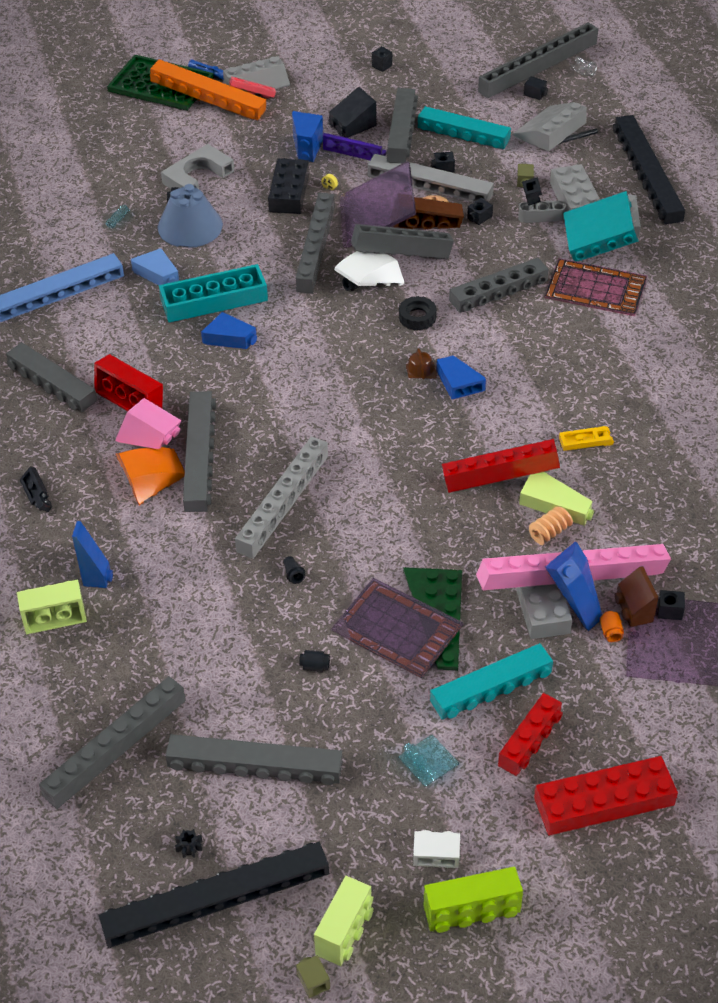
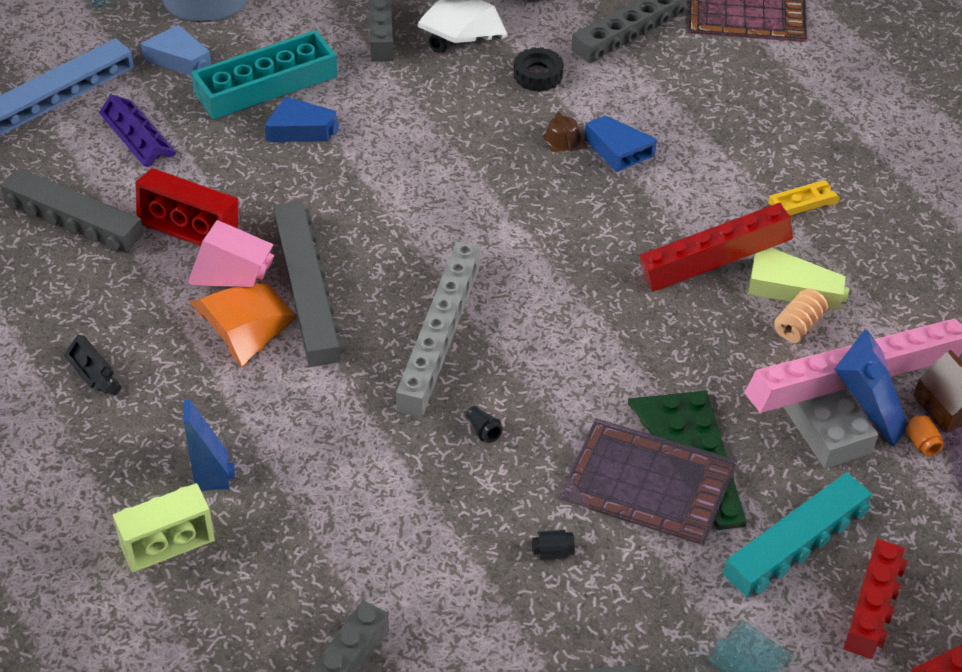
camera: 15 degrees left, 0 degrees up
(111, 323) = (135, 130): none -> dark purple fence

